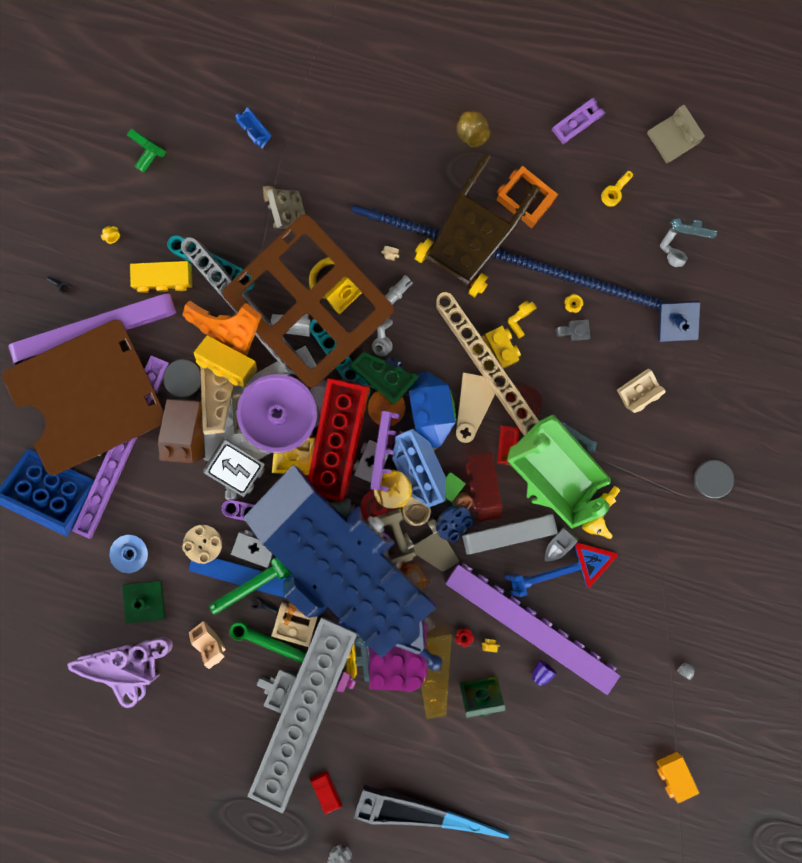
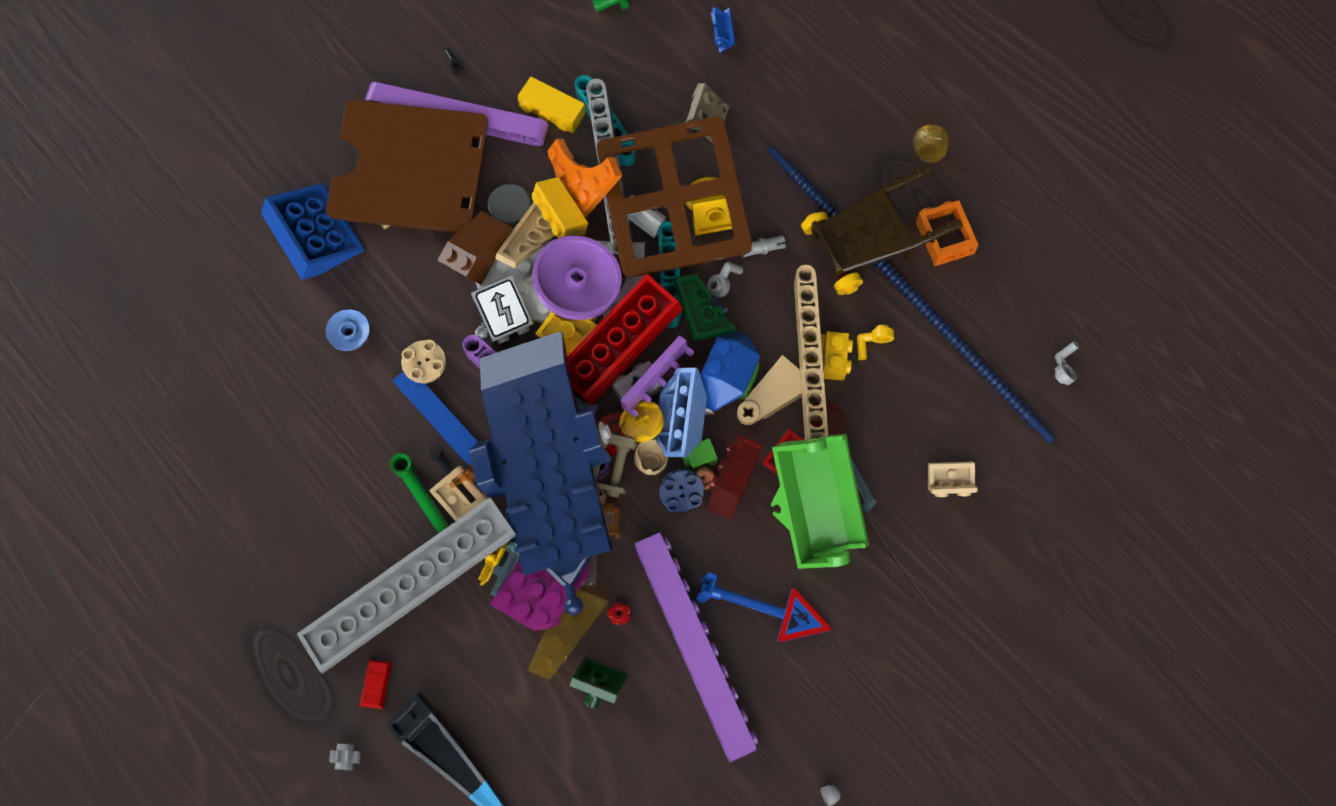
camera: 30 degrees right, 15 degrees down
(110, 234) = (530, 45): yellow plate -> none
(113, 465) = (389, 244): medium lavender plate -> none
(123, 670) = (260, 432): lavender piece -> none
(143, 602) = (329, 385): dark green tile -> none
(207, 643) = (362, 458): light nougat brick -> none
(243, 549) = (460, 389): light grey brick -> none
(275, 570) = (479, 429): green piece -> none
(277, 689) = (397, 546): light grey hinge -> none
(345, 681) = (469, 578): magenta tile -> none
(378, 403) = (699, 347): orange tile -> none
(390, 253) = (781, 208): tan plate -> none
(434, 549) = (644, 507): dark tan flag -> none
(490, 645) = (640, 638): yellow plate -> none
(509, 534) = (731, 538): light grey beam -> none
(543, 673) = (677, 700): dark purple hat -> none
(560, 544) = (776, 580): flat silver plate -> none
(577, 121) = (1040, 194): medium lavender plate -> none
(577, 330) = (922, 384): flat silver plate -> none
(578, 303) = (938, 353): yellow plate -> none
(598, 525) = (825, 578): yellow animal -> none
(614, 191) = (1034, 279): yellow plate -> none
(676, 134) = (1131, 260): dark tan bracket -> none
(679, 321) = (1032, 434): tile -> none
(694, 230) = (1100, 360): clear light blue piece -> none
(713, 479) = (977, 612): dark grey tile -> none

